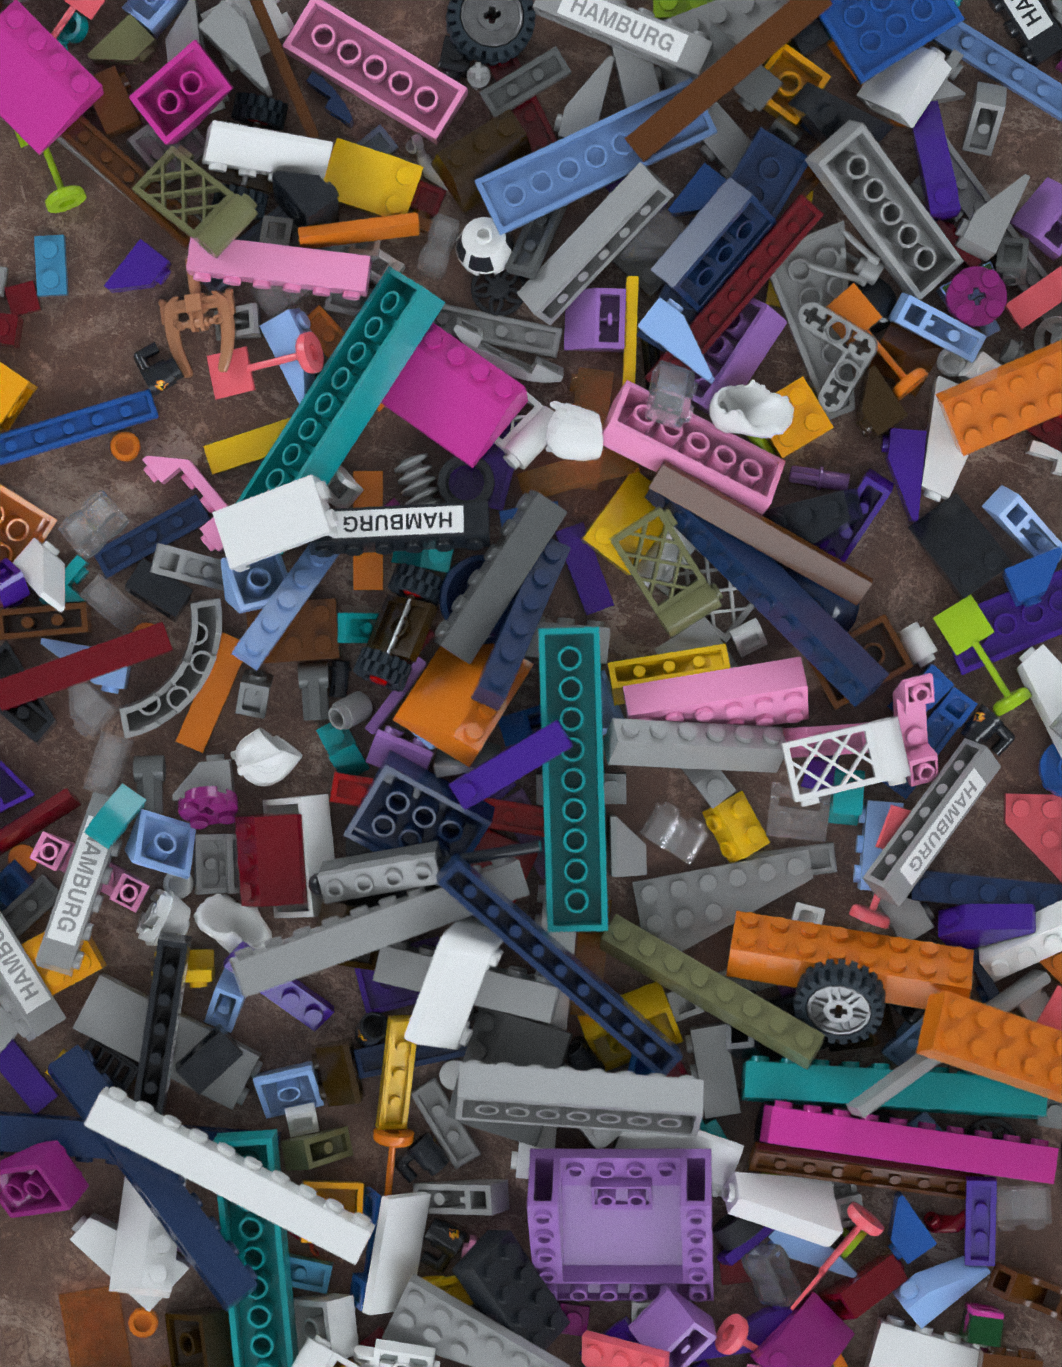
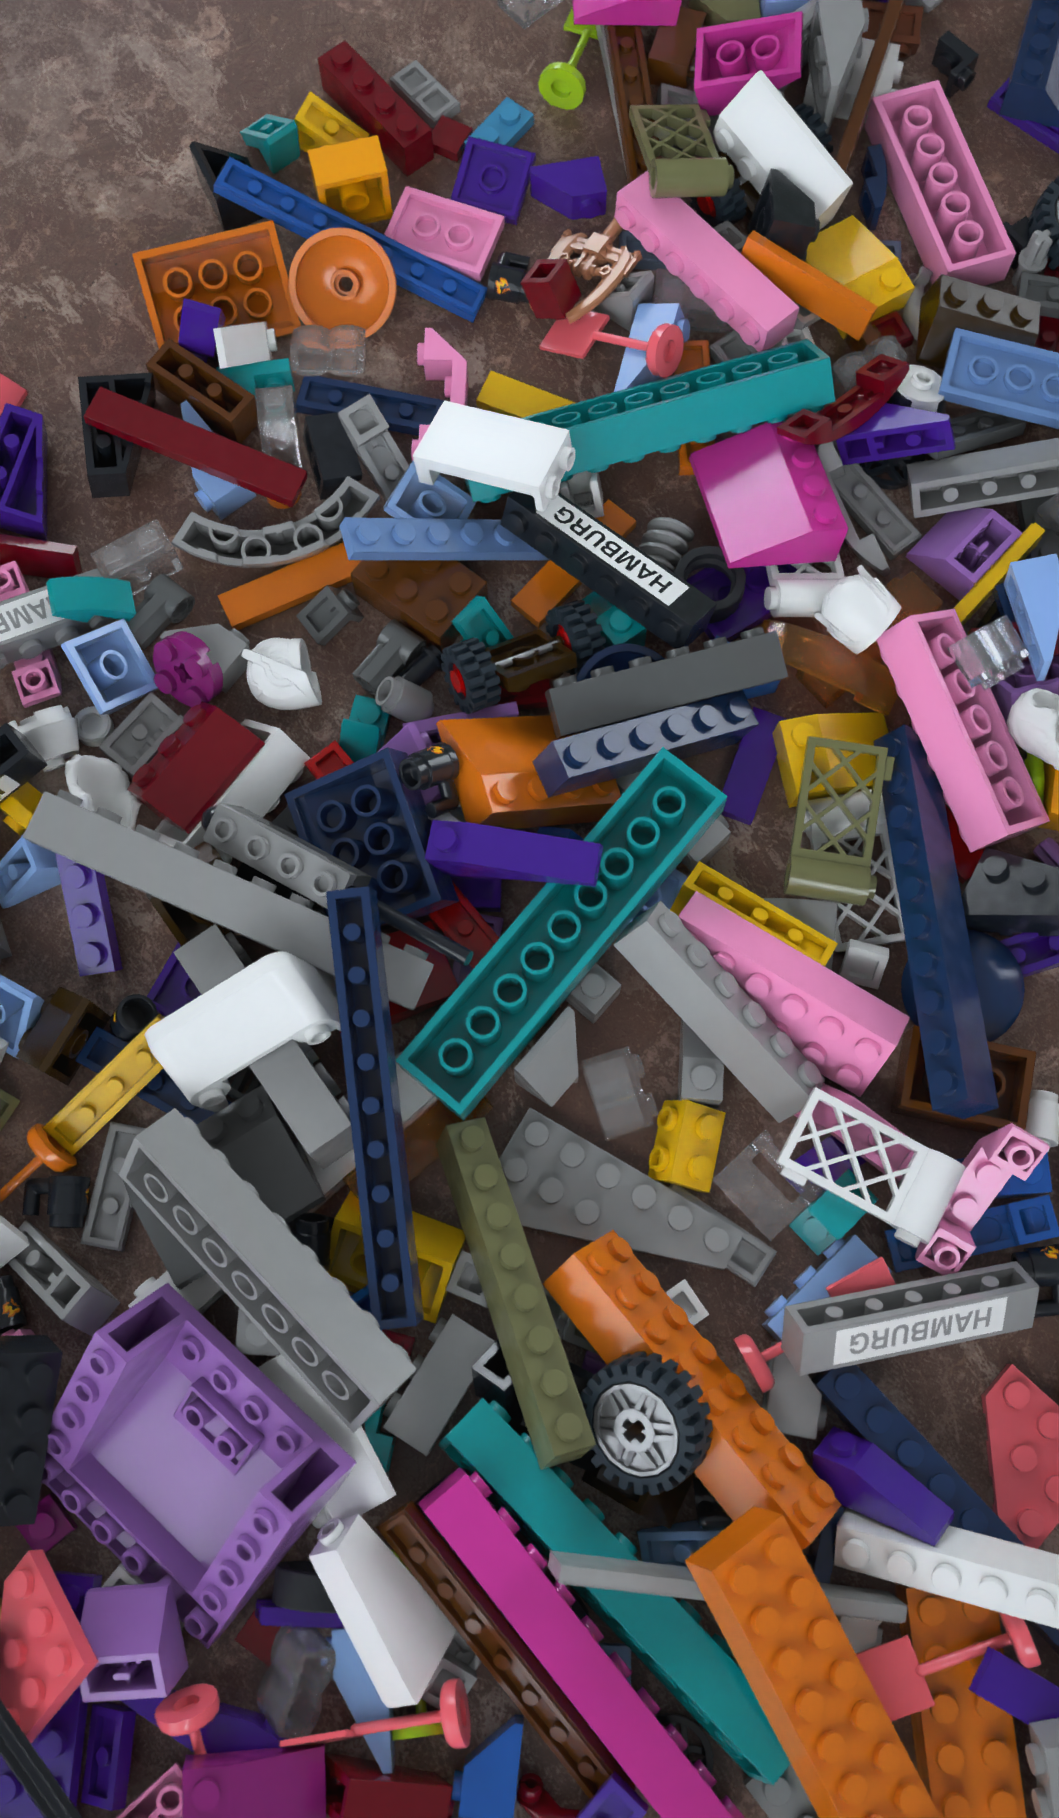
camera: 45 degrees right, 15 degrees down
(67, 488) = (318, 273): none -> orange dish
(82, 308) = (494, 178): none -> dark purple tile
(85, 375) = (446, 231): none -> bright pink plate
(89, 709) = (168, 496): clear slope -> none
(125, 446) = (420, 316): orange tile -> none
(194, 361) = (551, 288): none -> dark red brick
(418, 753) = (431, 768): none -> black piece
(458, 293) = (874, 387): none -> dark red slope
(484, 292) = (897, 433): none -> dark purple slope
(760, 533) = (973, 860): tile -> none

